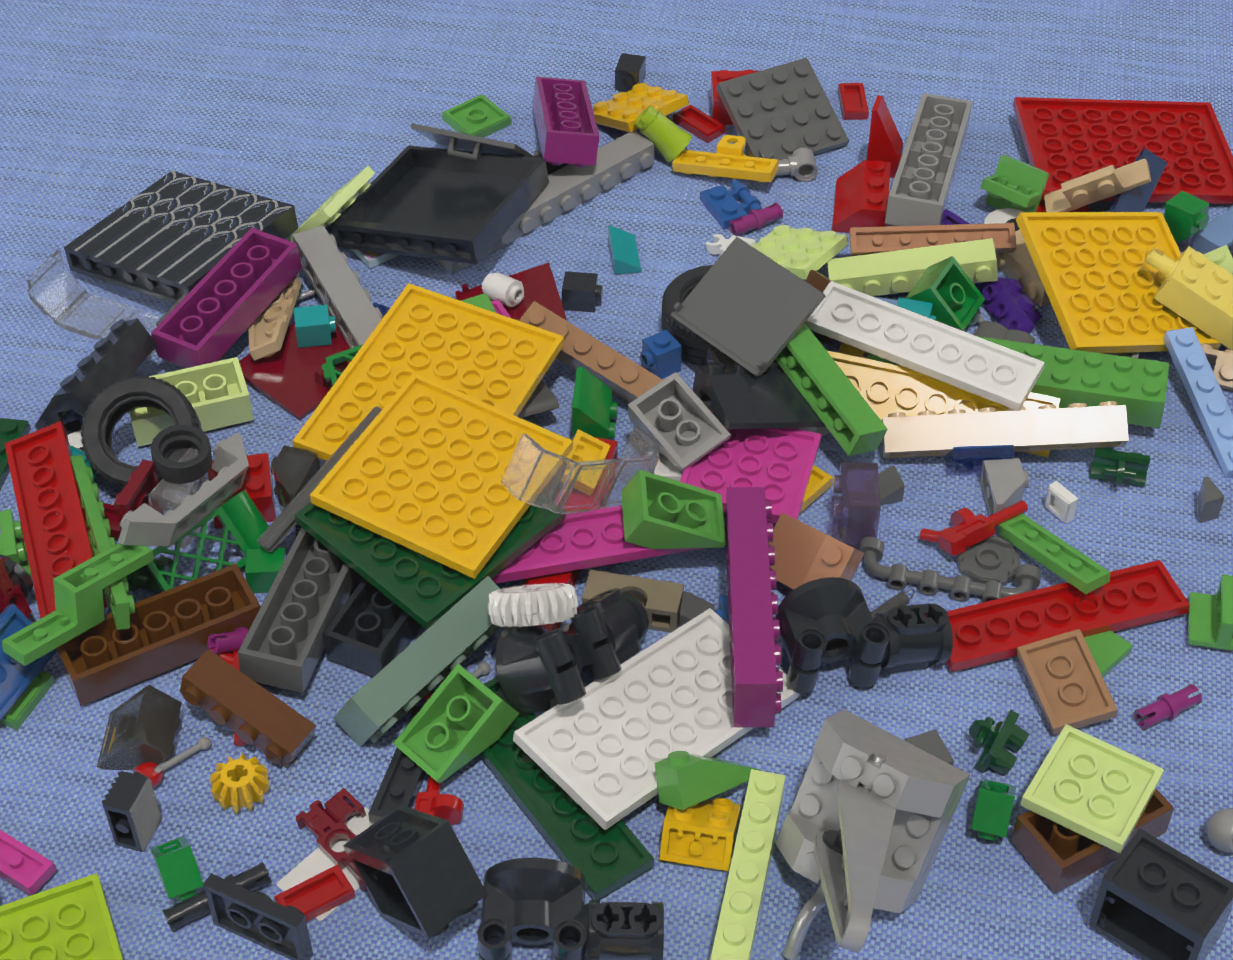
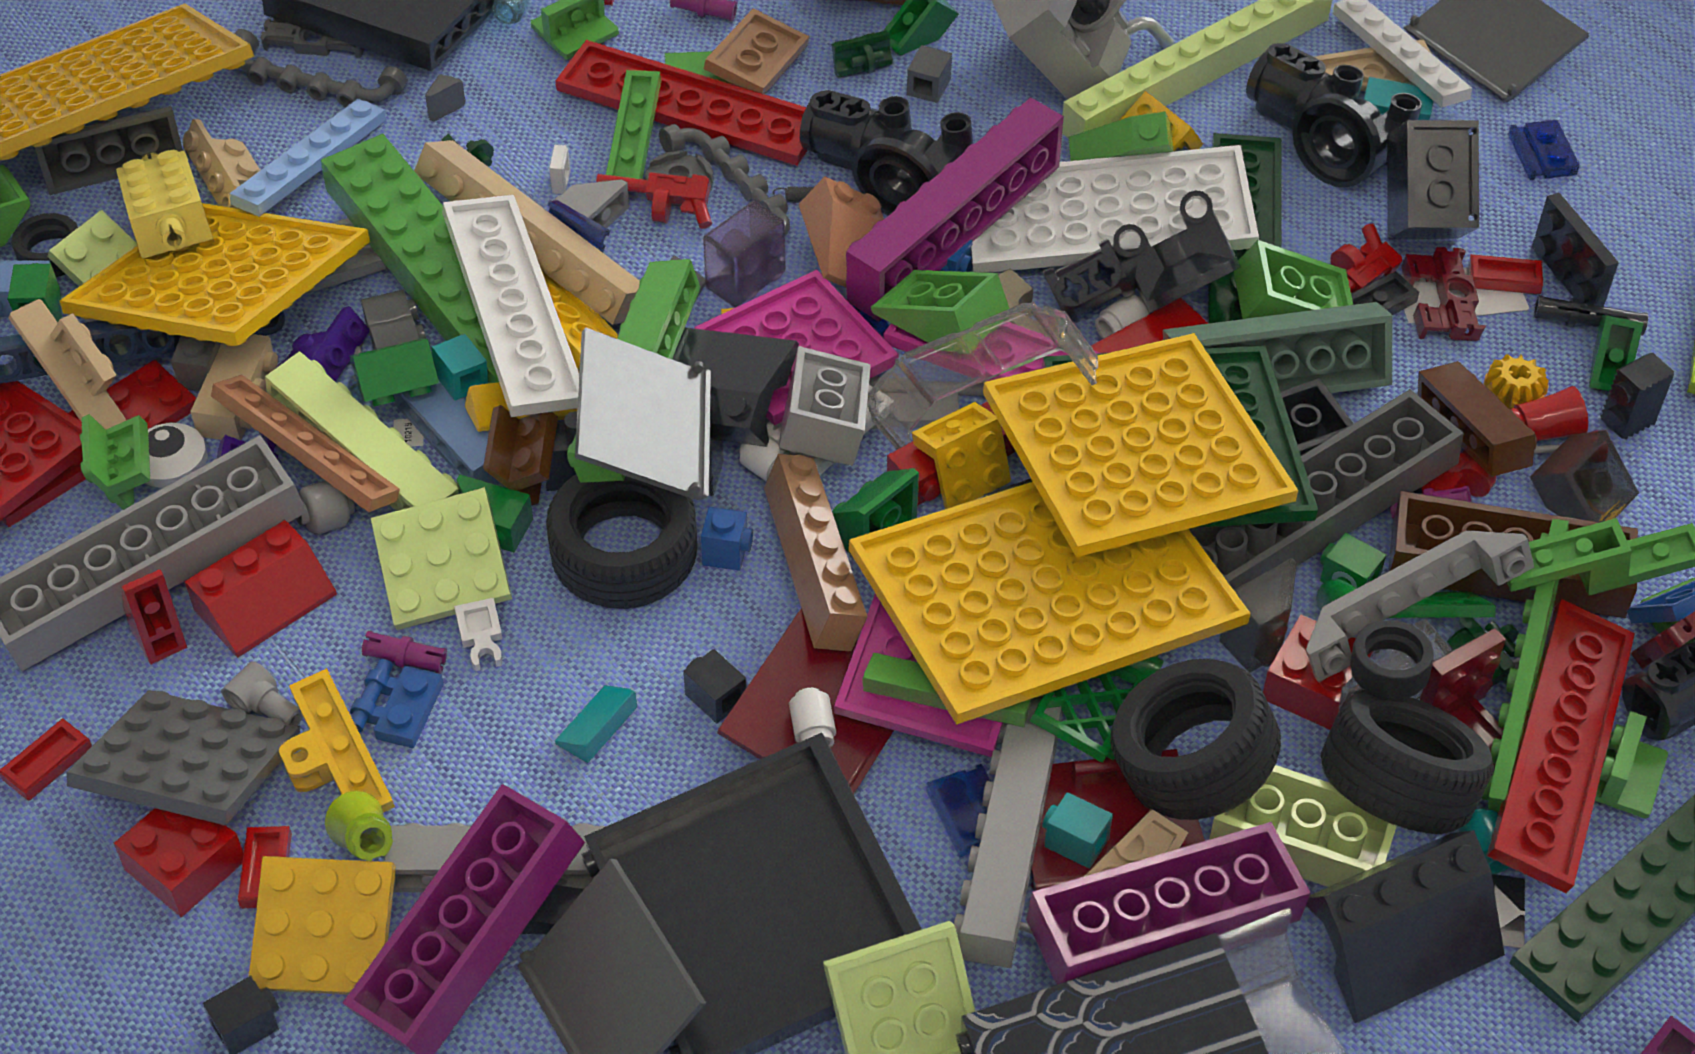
camera: 140 degrees left, 5 degrees up
(193, 766) = (1555, 414): none -> red plant
(264, 393) = (1217, 774): none -> black tyre
(286, 520) = (1246, 551): dark grey axle -> none
(532, 604) = (1171, 265): white gear -> none

